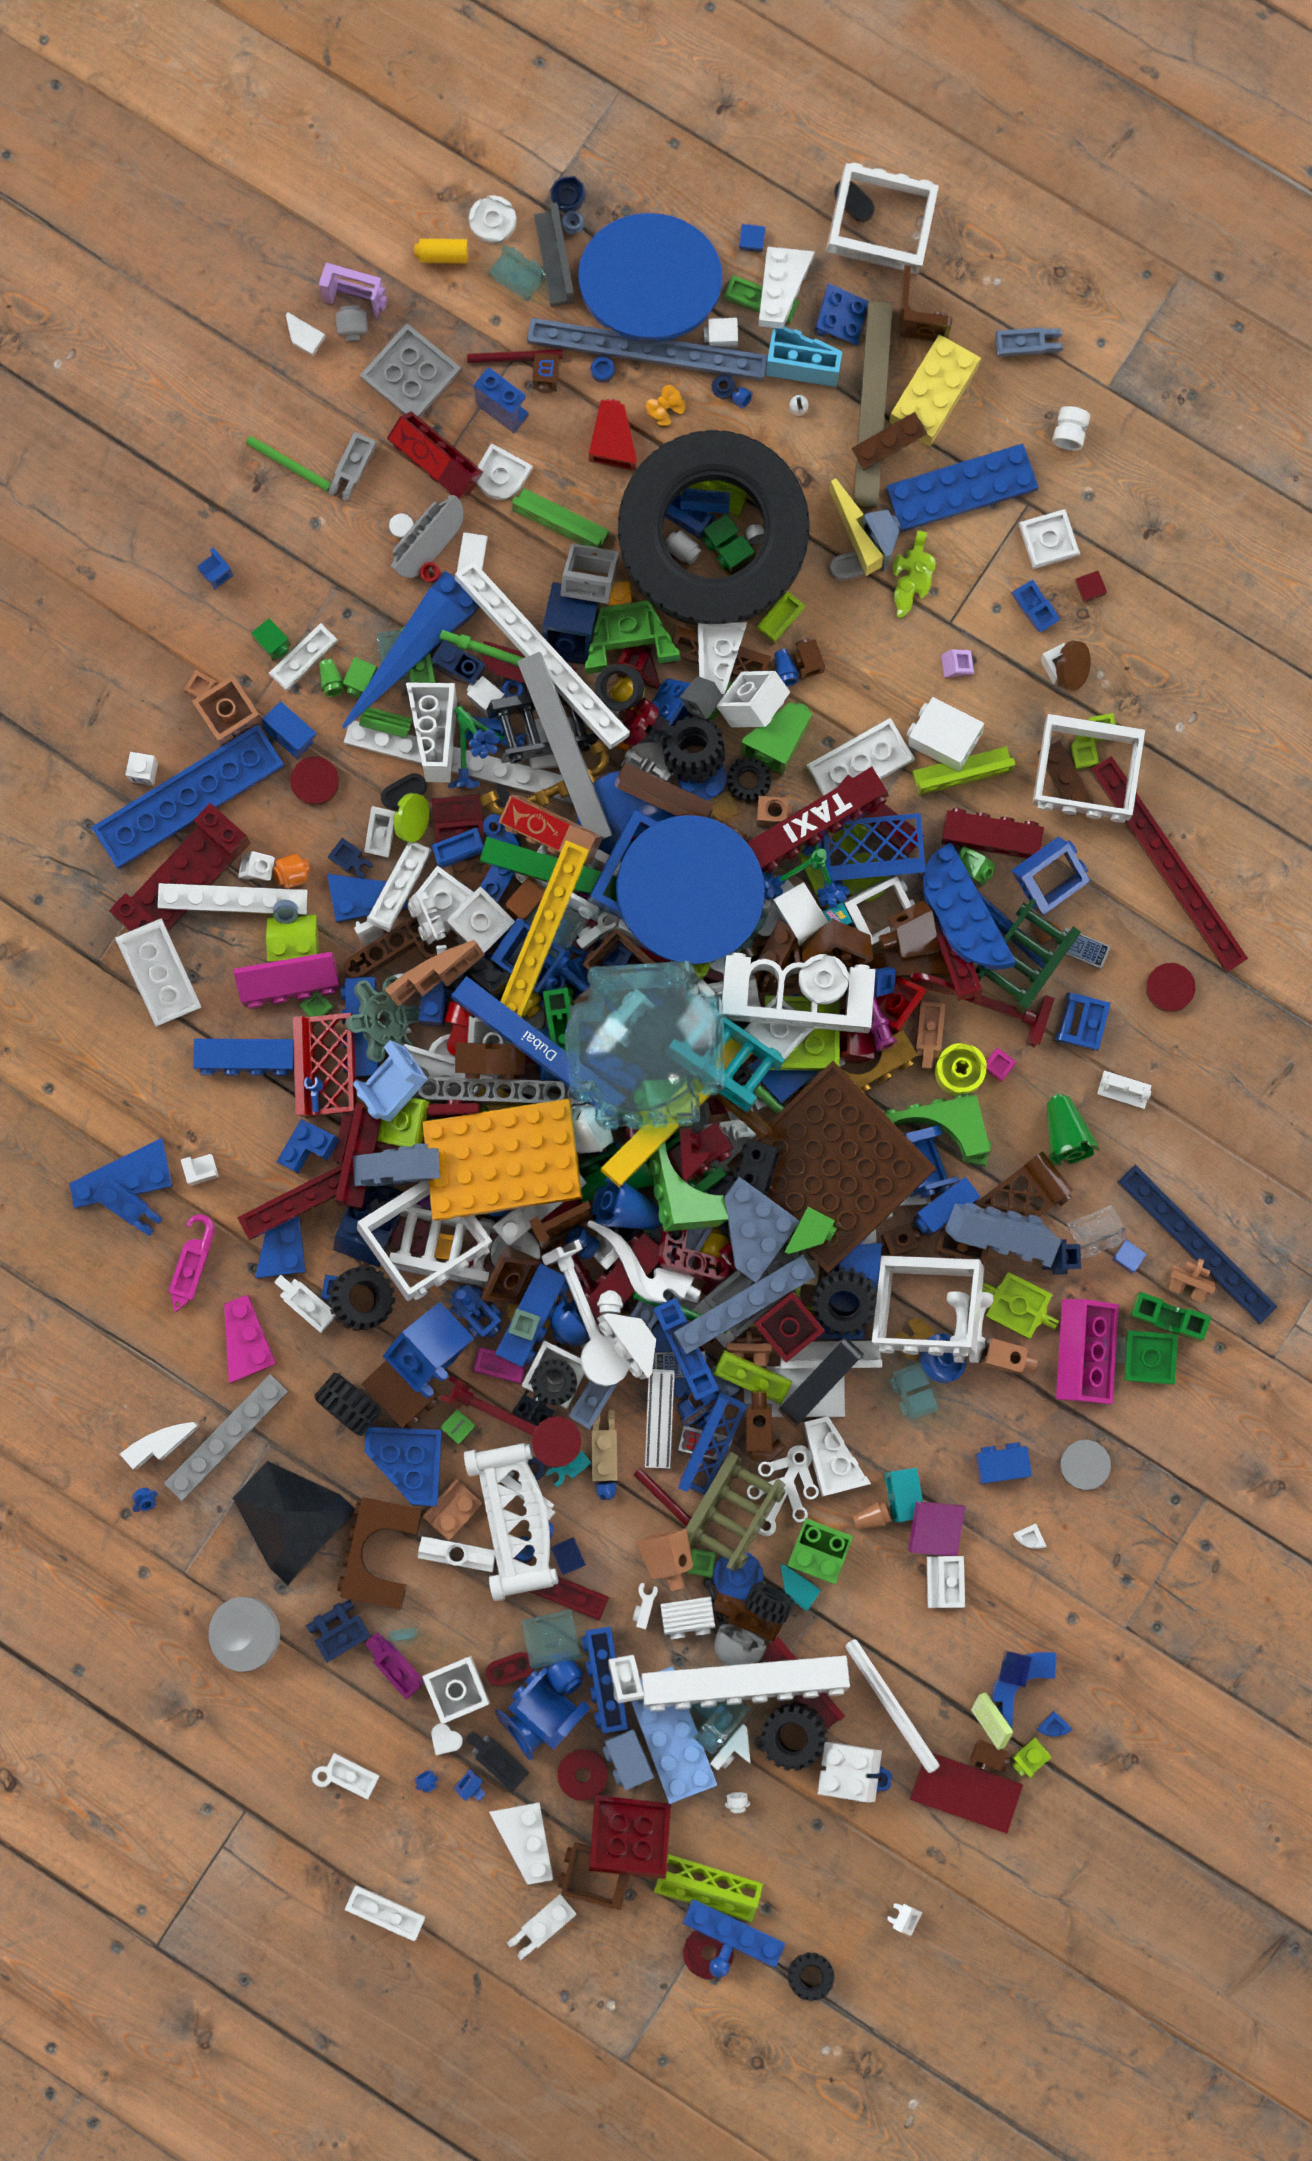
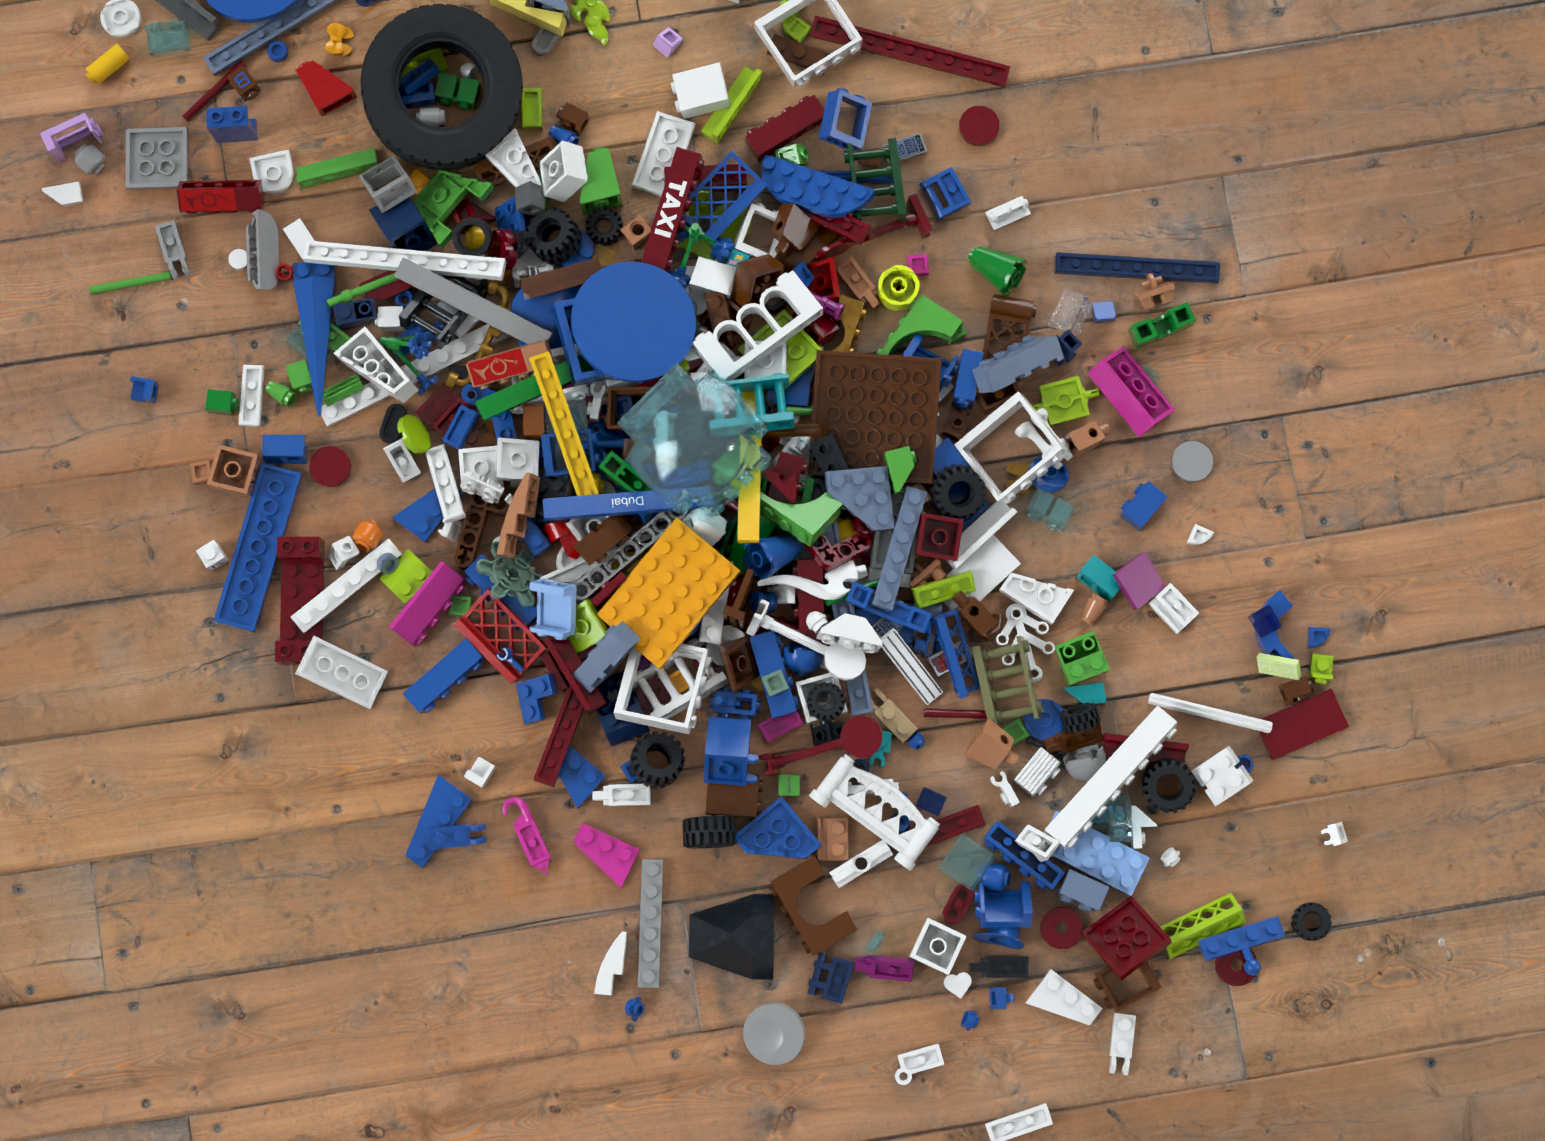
camera: 40 degrees left, 0 degrees up
(347, 857) = (395, 495): dark blue plate -> none
(820, 1382) = (988, 555): black beam -> none
(823, 979) = (766, 304): white tile -> none
(1150, 1357) = (1172, 361): green plate -> none

